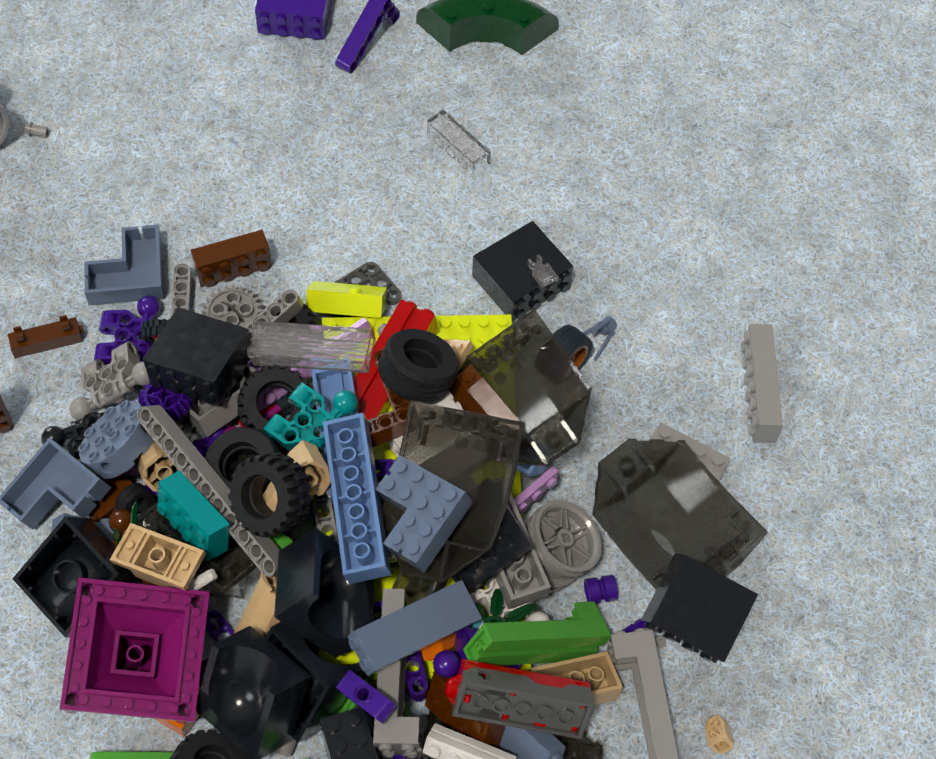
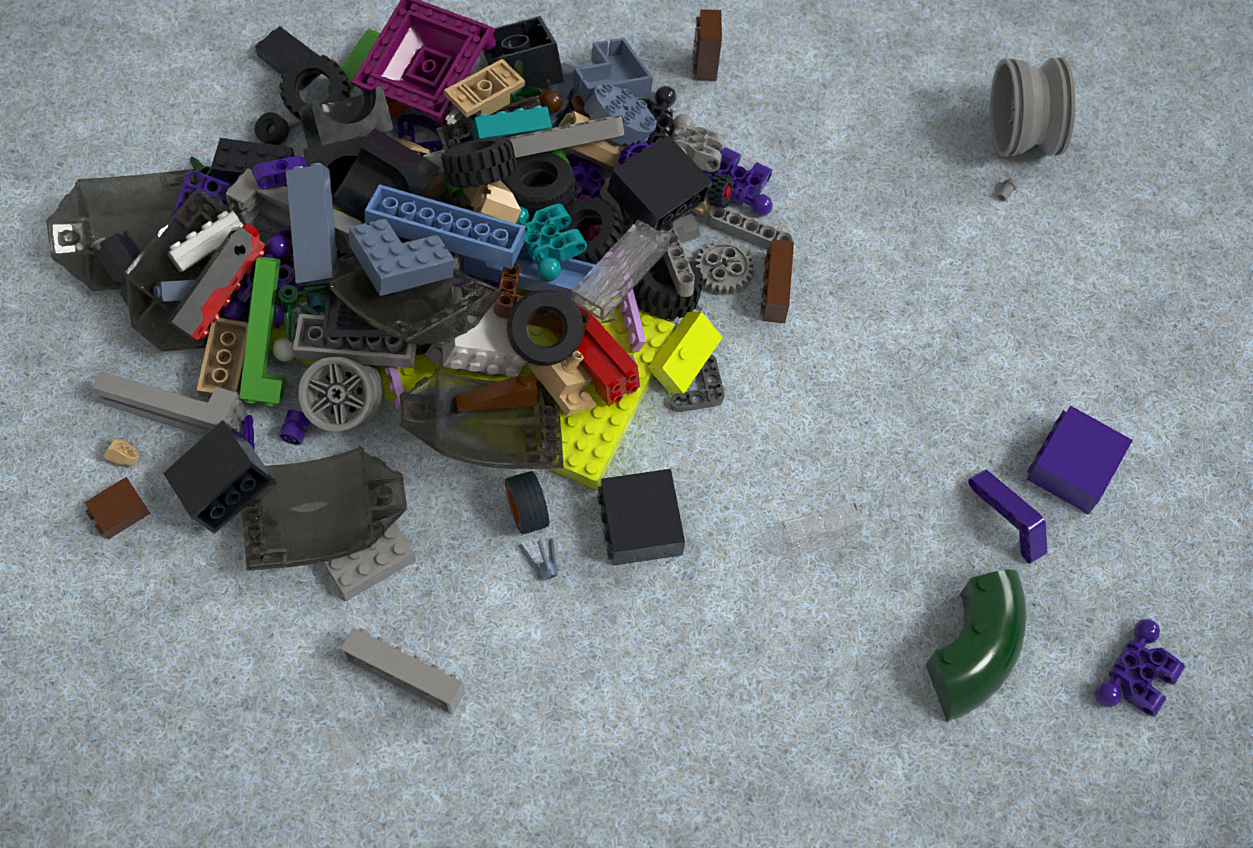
camera: 115 degrees right, 5 degrees up
(45, 337) = (768, 123): reddish brown brick -> none
(133, 275) = (803, 210): sand blue piece -> none
(542, 273) = (614, 515): clear plate -> none
(772, 704) = (116, 508): none -> reddish brown brick

